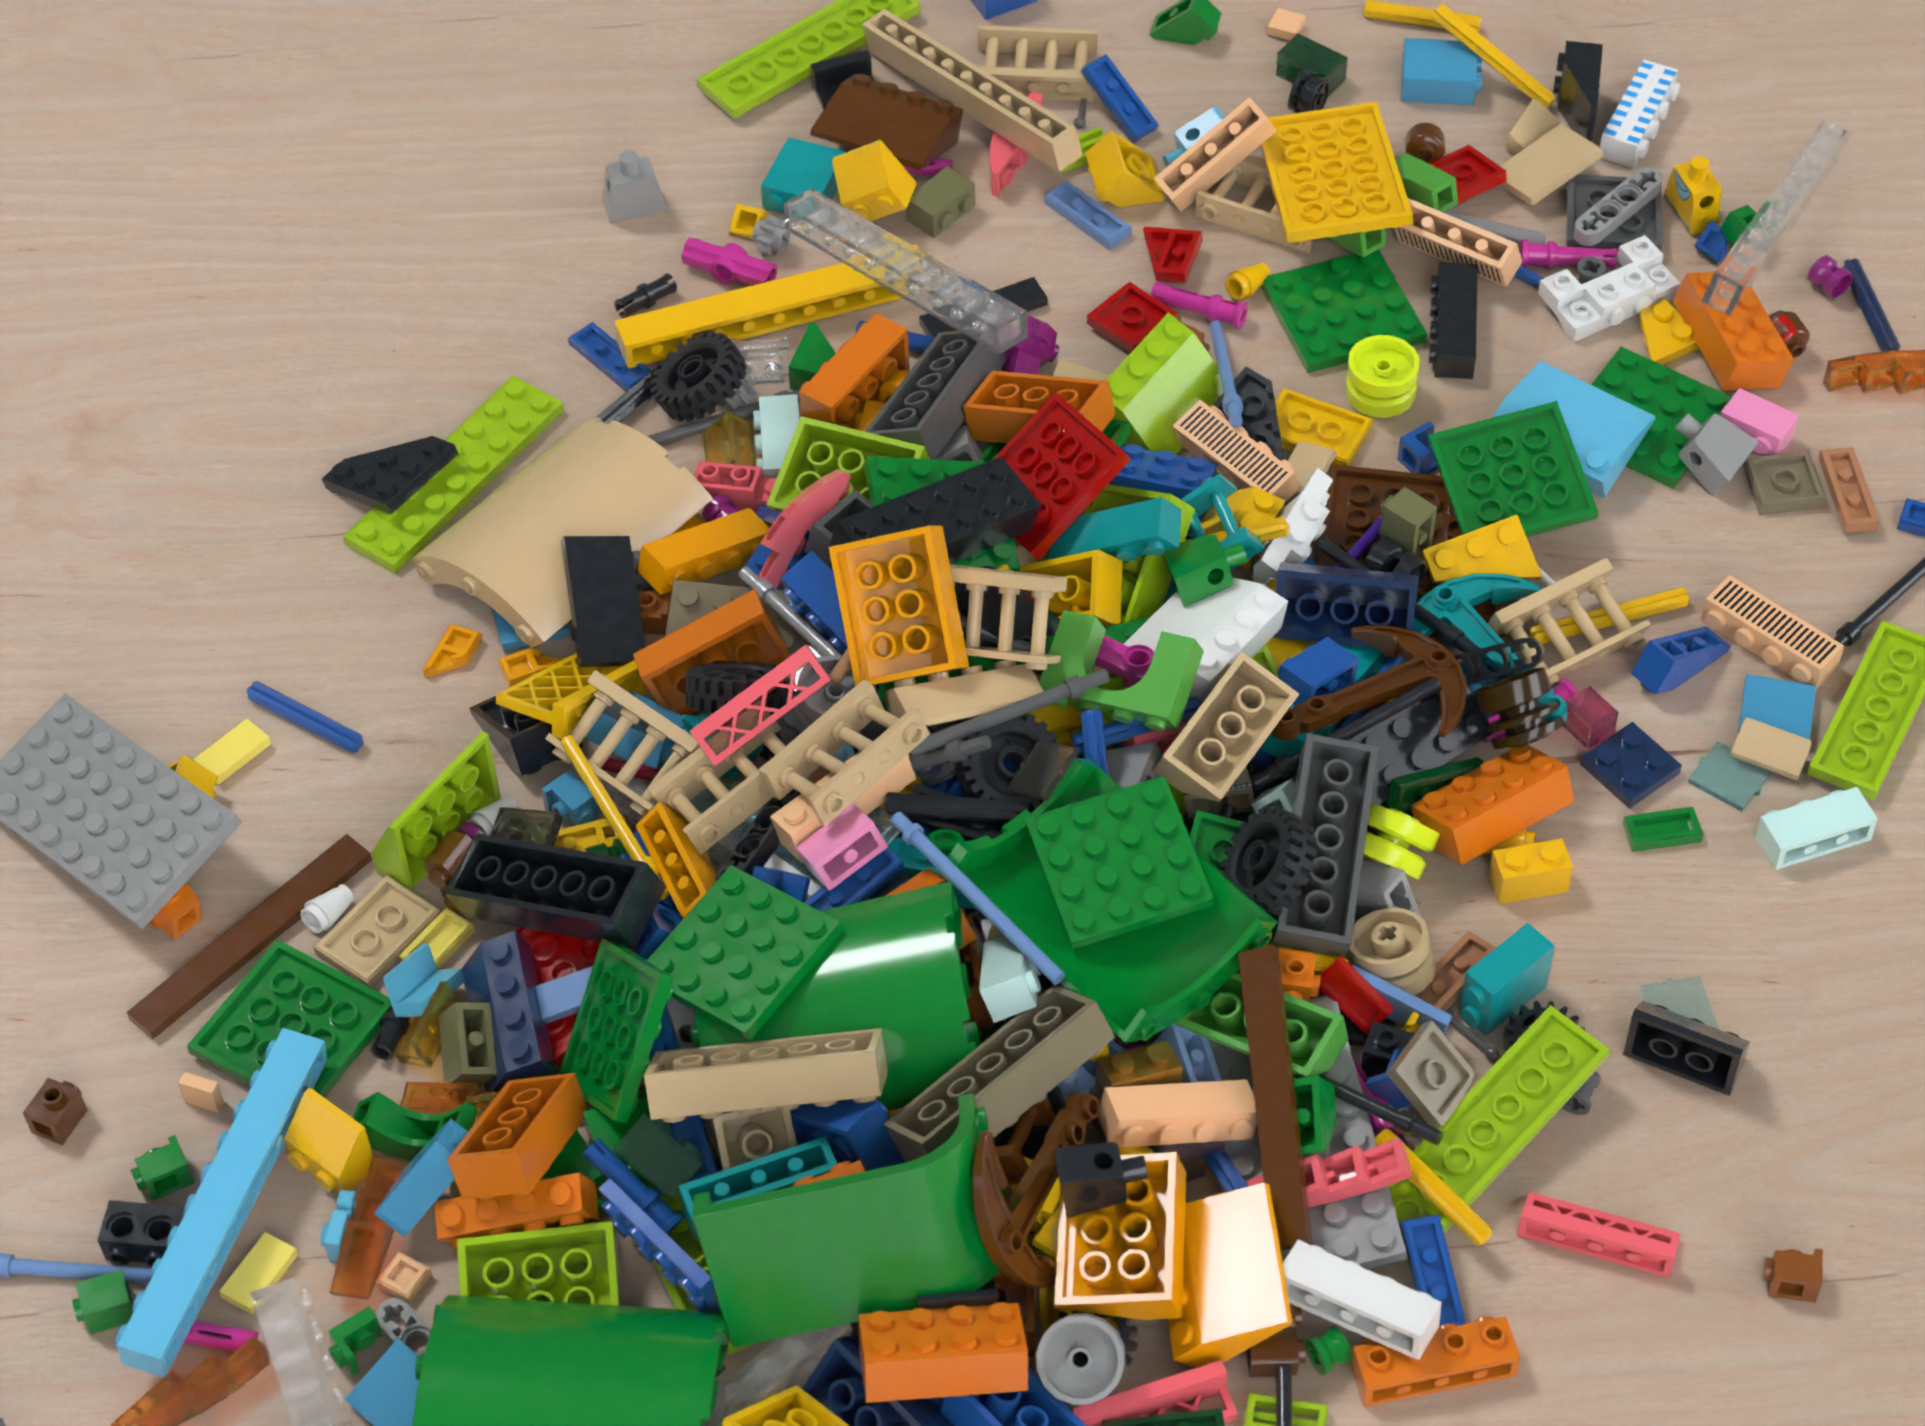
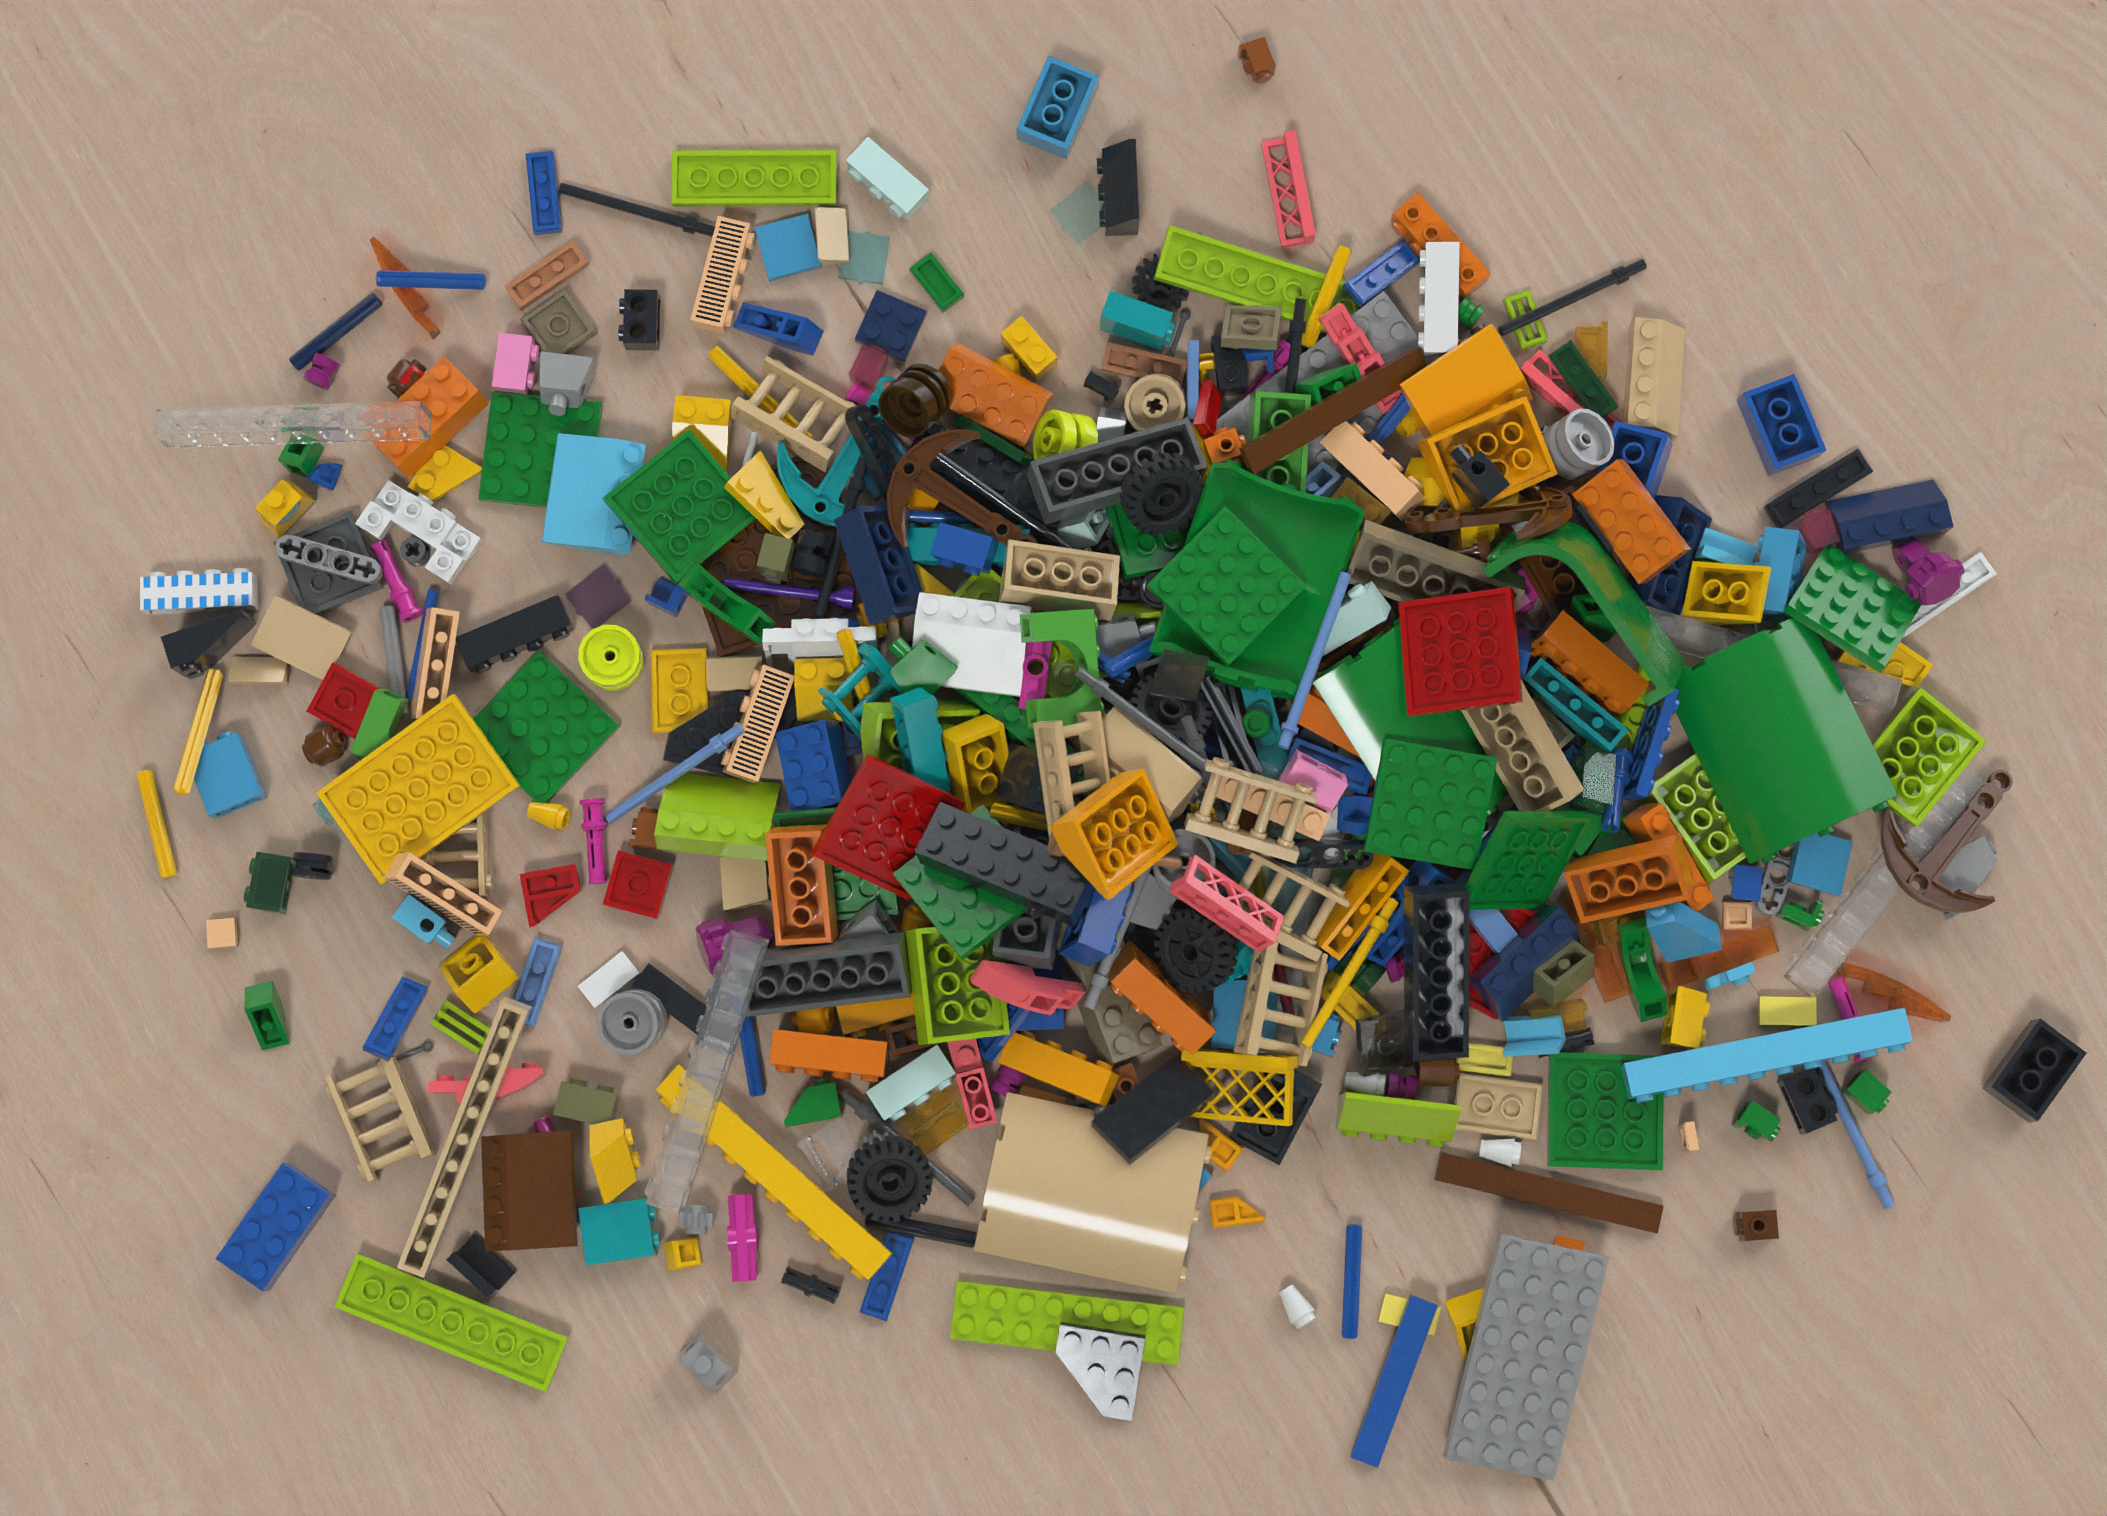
camera: 120 degrees left, 30 degrees up
(179, 703) = (1394, 1381): none -> blue tile
(316, 656) = (1297, 1307): none -> white cone
(426, 1290) = (1746, 882): none -> blue panel
(887, 1024) = (1460, 652): none -> red plate
(996, 252) = (636, 1036): none -> light grey wheel
(1052, 266) = (608, 979): none -> white tile
(1370, 484) = (725, 604): none -> green arch
(1448, 926) = (1101, 386): none -> black pin
(1456, 403) = (598, 597): none -> clear purple piece
(1589, 542) = (709, 423): none -> yellow slope
(1753, 545) = (646, 319): none -> black brick
(1827, 1024) = (1057, 107): none -> dark azure brick
(1889, 384) = (421, 279): none -> blue axle

